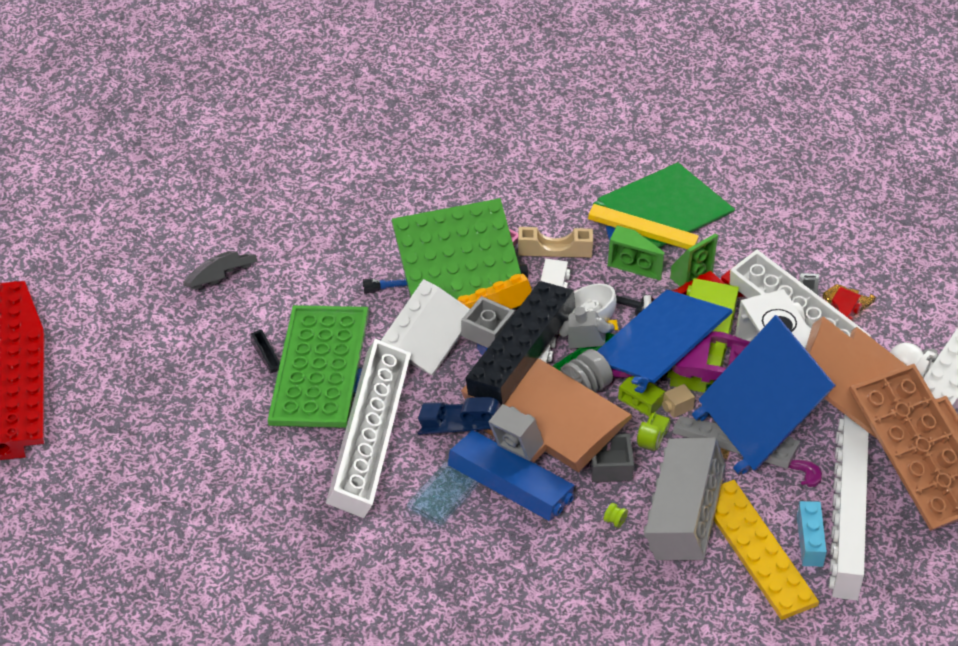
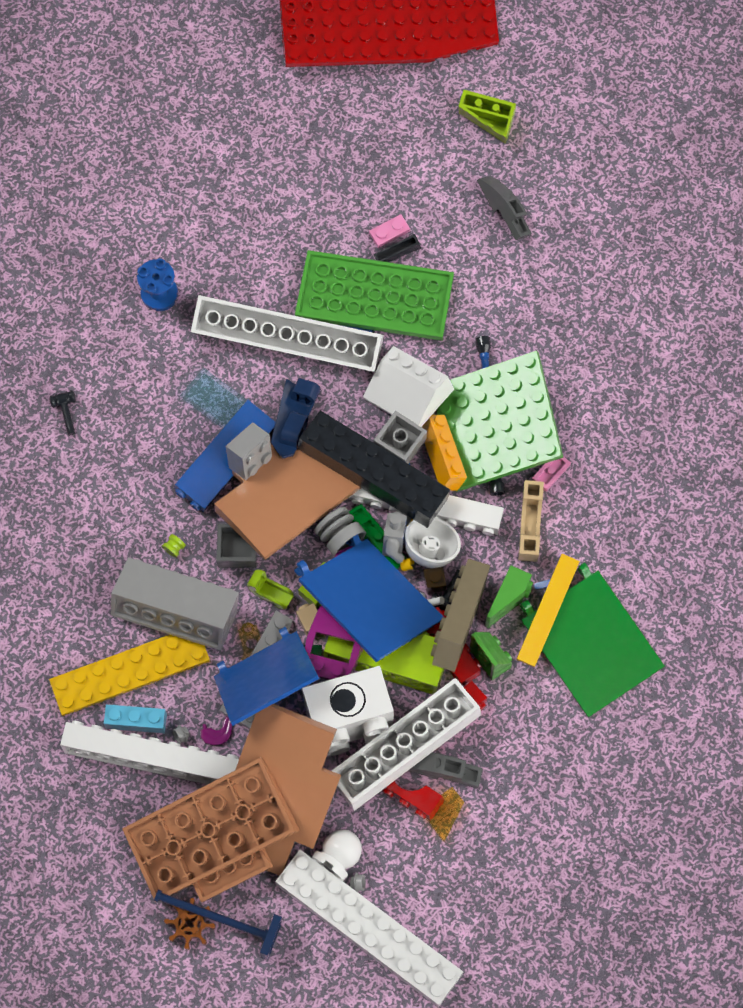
camera: 95 degrees right, 25 degrees up
(114, 281) = (488, 113): none -> lime wedge
(242, 360) = (389, 231): none -> bright pink plate
(317, 546) = (157, 284): none -> blue piece
(455, 630) = (63, 400): none -> black piece
(625, 309) = (434, 580): none -> dark brown brick
(667, 267) = (459, 614): none -> dark tan brick
(818, 496) = (181, 734): none -> light grey plate

